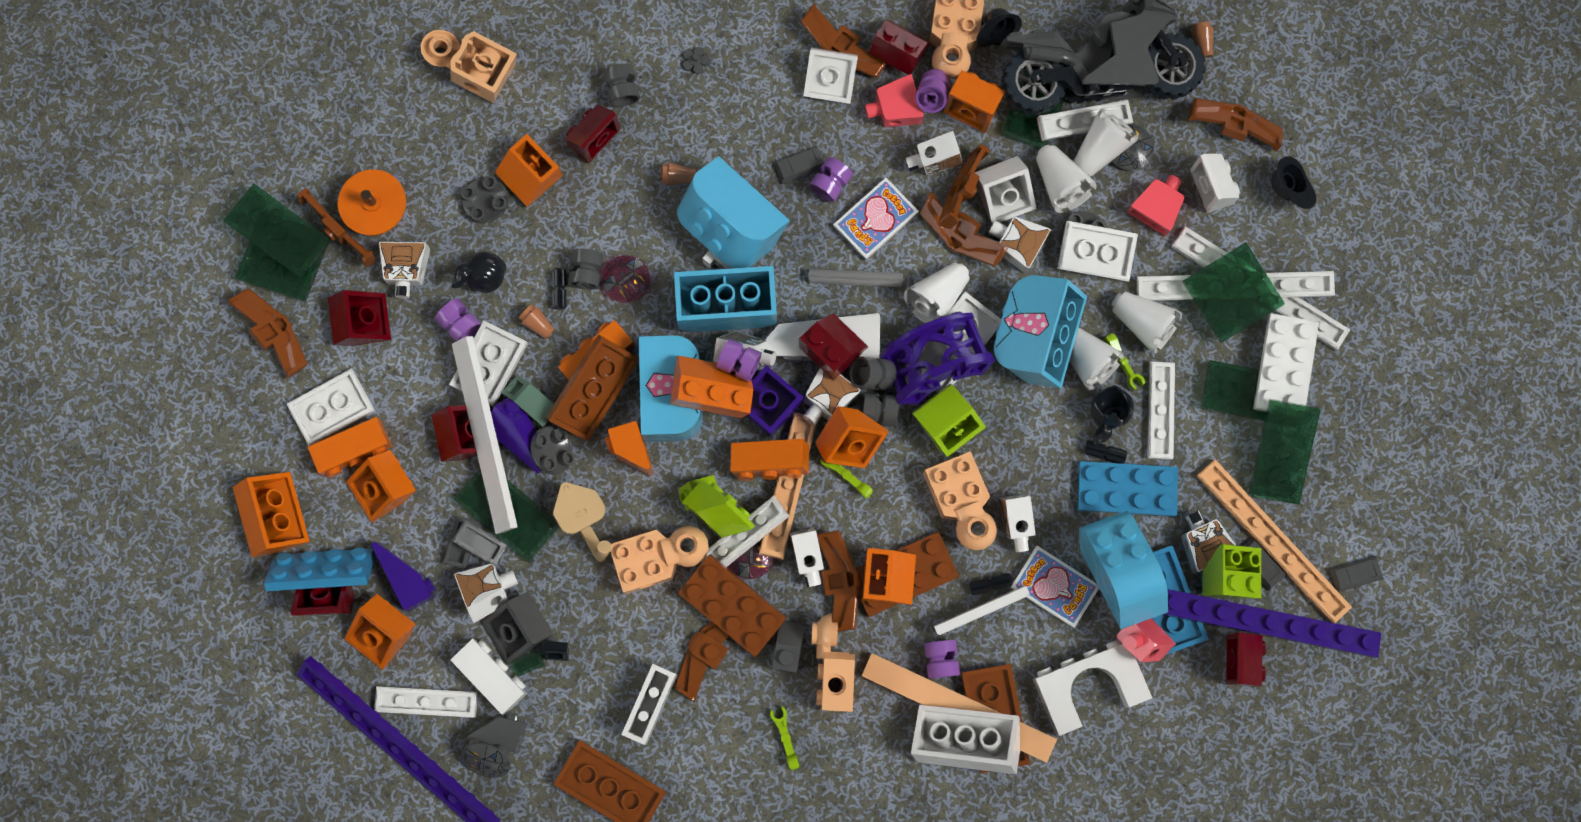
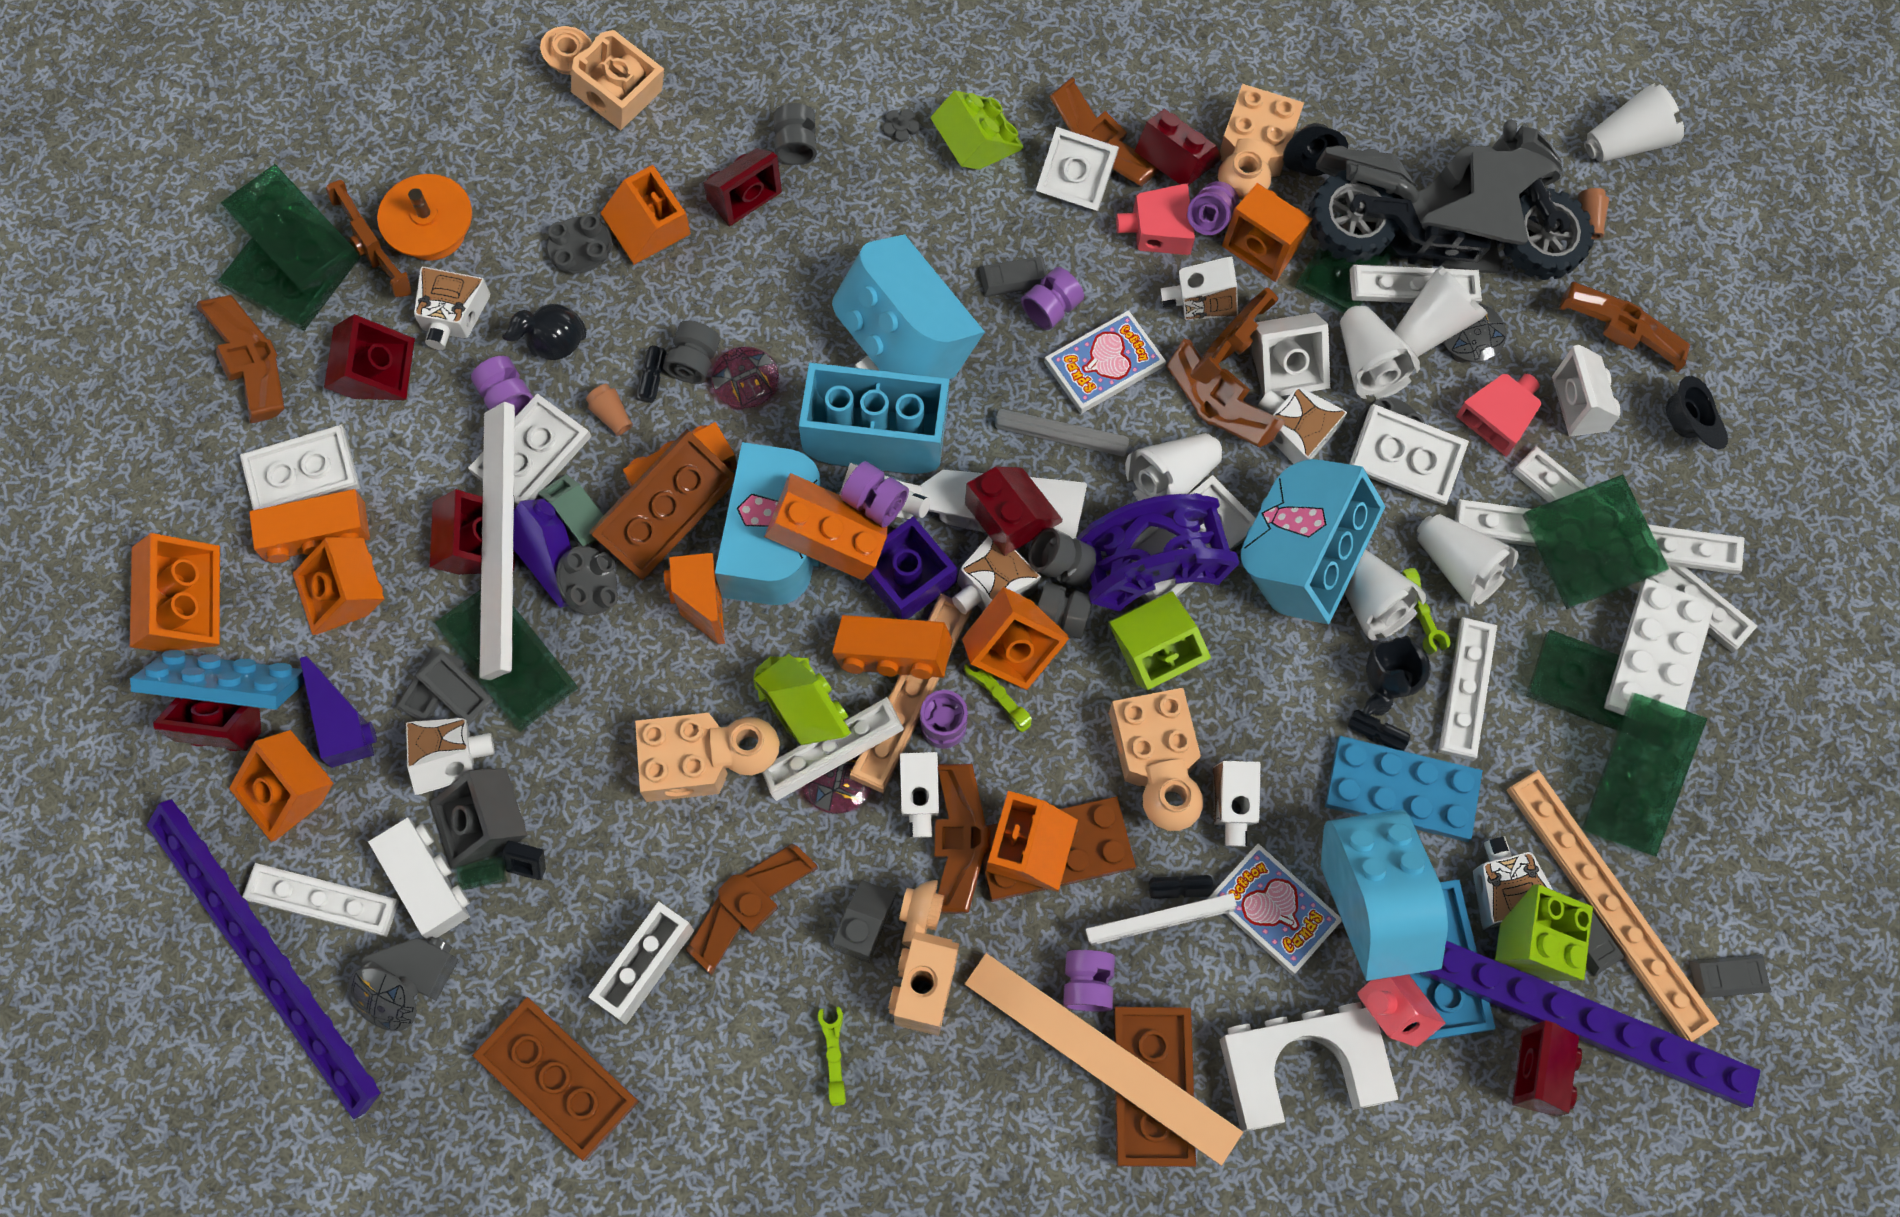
camera: 10 degrees right, 10 degrees down
(576, 511) = (601, 666): tan piece -> none
(676, 174) = (839, 255): nougat cone -> none
(732, 605) = (796, 843): dark orange plate -> none
(751, 56) = (976, 129): none -> lime slope
(813, 501) = (943, 719): none -> medium lavender wheel
(967, 739) = (1106, 1106): white slope -> none

